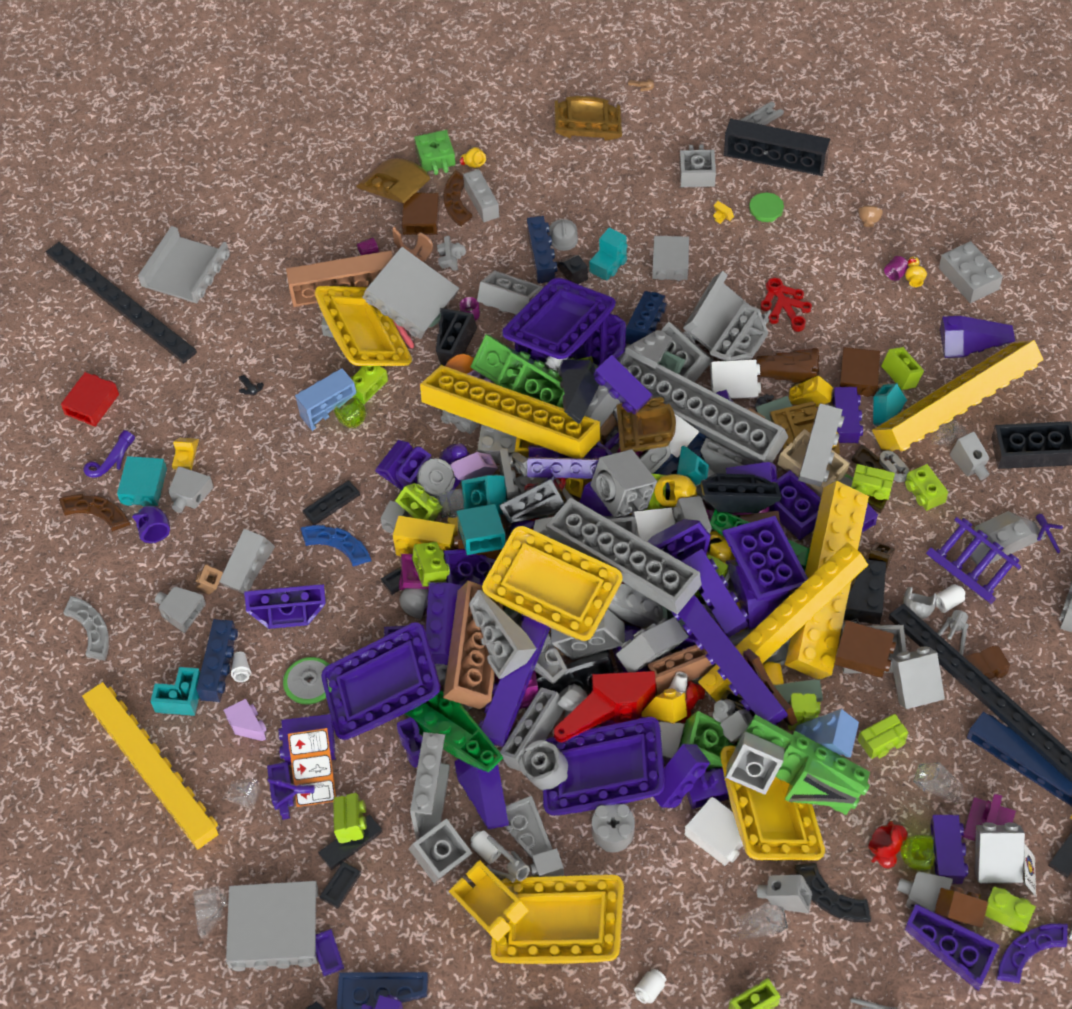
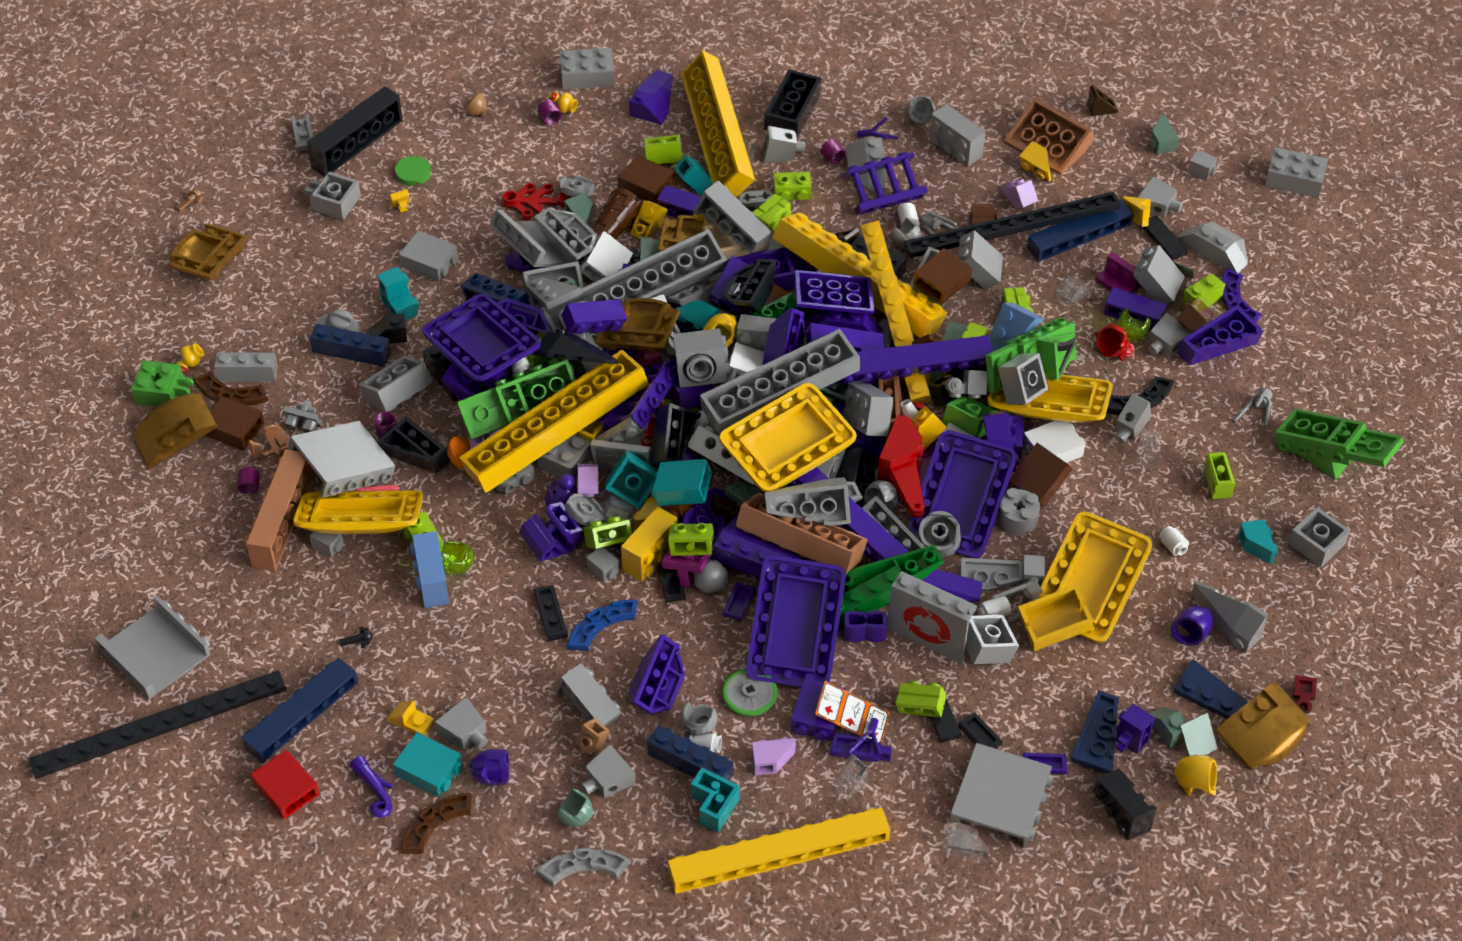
camera: 70 degrees left, 5 degrees down
(133, 598) = (575, 809): none -> sand green hair
(162, 378) = (300, 710): none -> dark blue brick
(257, 650) = (699, 719): none -> light grey hair
(664, 829) = (1040, 473): none -> reddish brown brick
(788, 339) = (581, 206): none -> sand green slope
(812, 329) = (576, 185): none -> light grey tile
(997, 500) = (832, 150): none -> magenta piece
(1045, 685) = (1019, 193): none -> lavender slope

